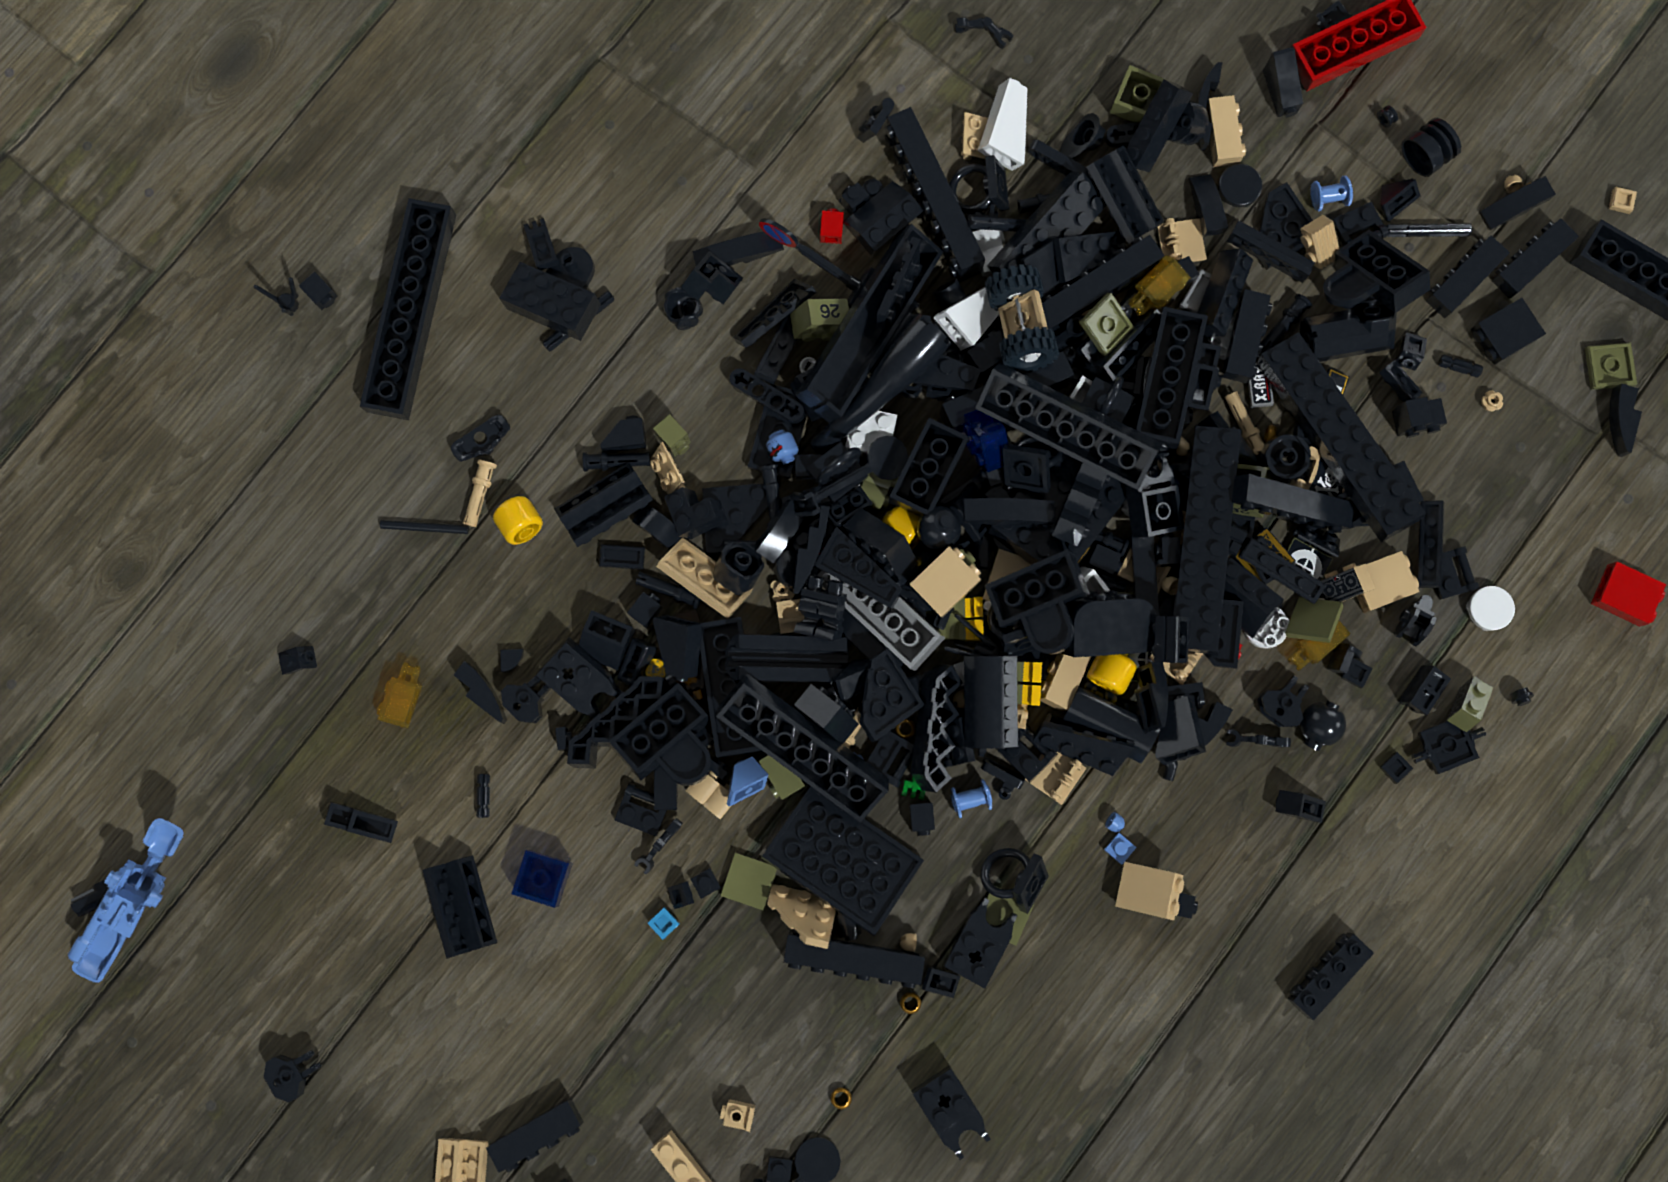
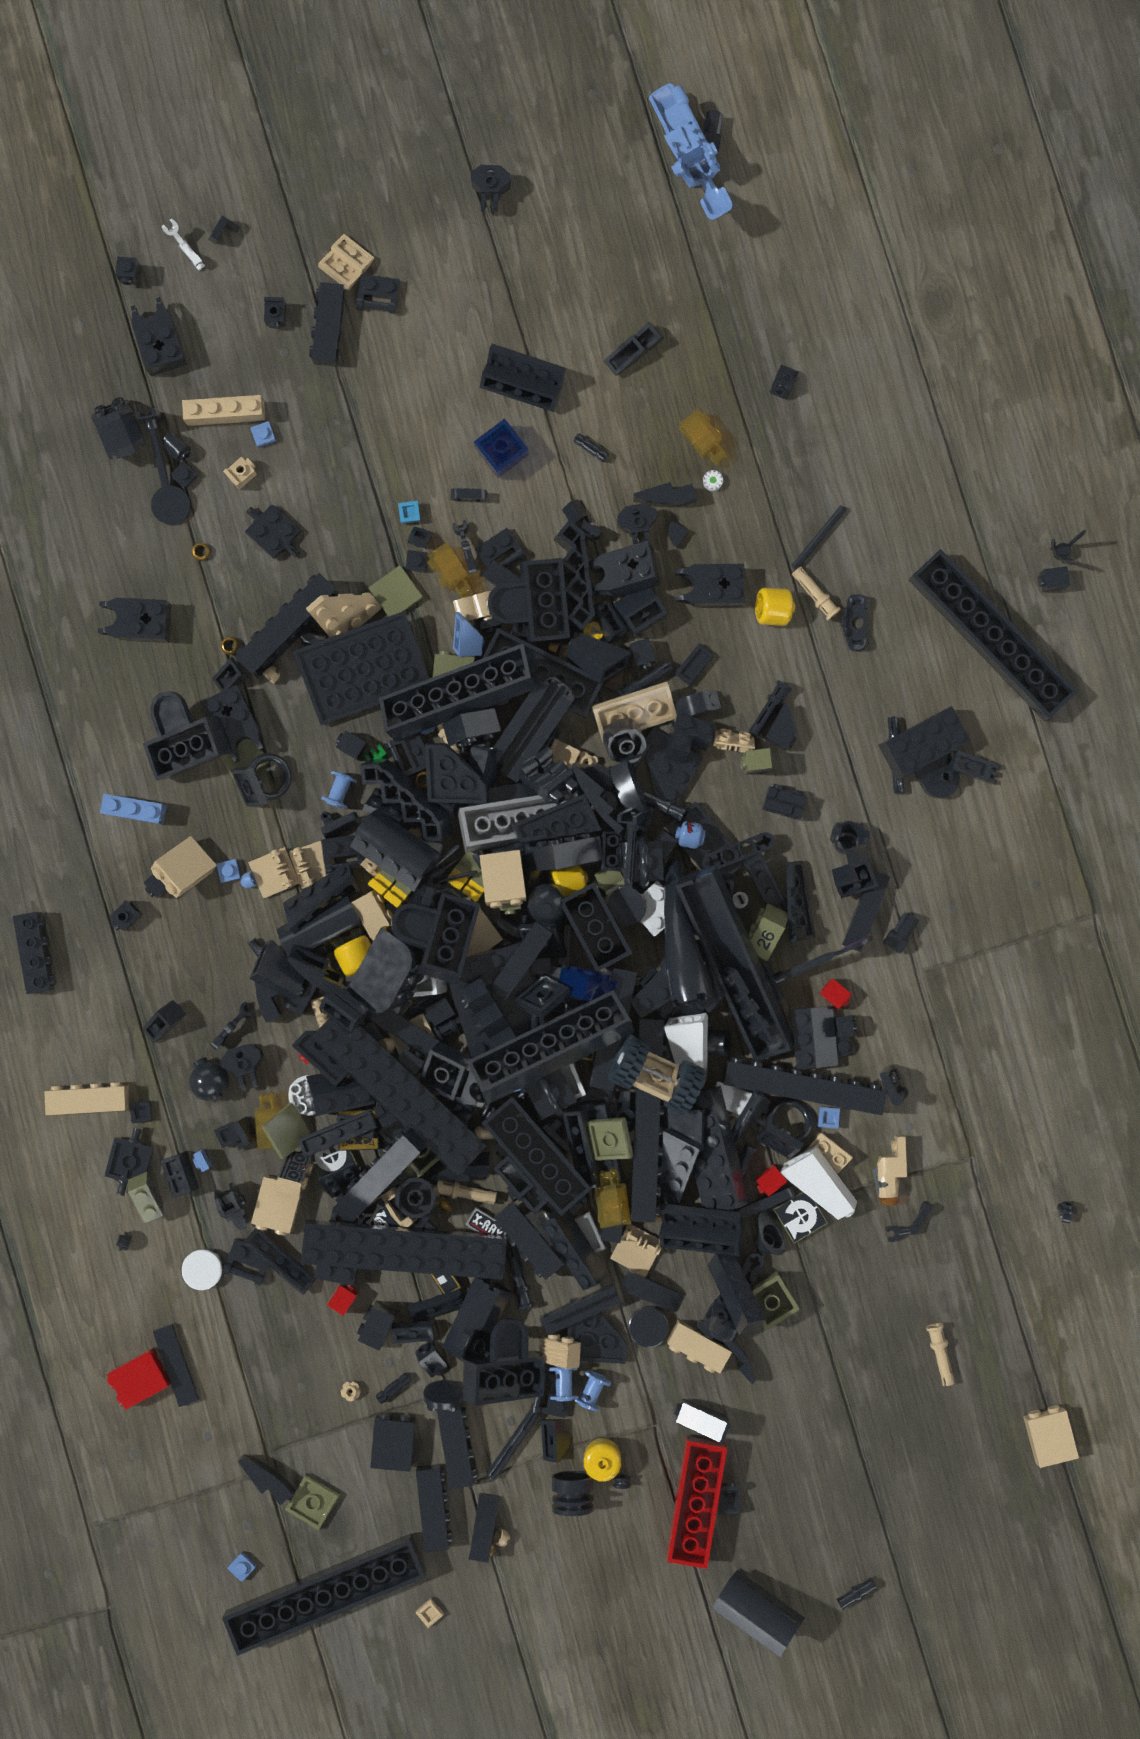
camera: 125 degrees right, 5 degrees up
(437, 660) = (712, 480): none -> white tile
(465, 1112) = (378, 288): none -> black plate
(541, 594) = (706, 585): none -> black brick
(555, 767) = (575, 511): none -> black slope
(603, 504) = (741, 676): black brick -> none
(608, 878) = (468, 495): none -> black beam
(686, 1121) = (263, 434): none -> medium blue plate
(692, 388) = (784, 802): none -> black brick
(692, 844) = (449, 569): none -> clear yellow brick
(741, 207) = (899, 936): none -> black piece
(773, 1041) = (272, 531): none -> black plate
(946, 157) = (828, 1117): none -> medium blue plate
(951, 75) = (888, 1170): none -> tan plate
(1036, 169) = (770, 1180): none -> red brick
(1037, 980) = (180, 741): none -> black brick
(1048, 123) = (800, 1216): none -> tile
(1090, 804) = (274, 872): none -> tan hinge
(1130, 980) = (133, 809): none -> medium blue brick
(1225, 911) = (132, 915): none -> black brick
(1348, 217) = (563, 1384): none -> medium blue hose
(1360, 377) = (436, 1306): none -> black hinge
(1383, 143) = (609, 1455): none -> yellow head
(1397, 678) = (202, 1161): none -> medium blue plate
(1421, 463) = (342, 1298): none -> red brick
(1424, 825) = (86, 1099): none -> tan brick
(1435, 315) = (443, 1395): none -> black tile
(1590, 571) = (175, 1365): none -> black tile

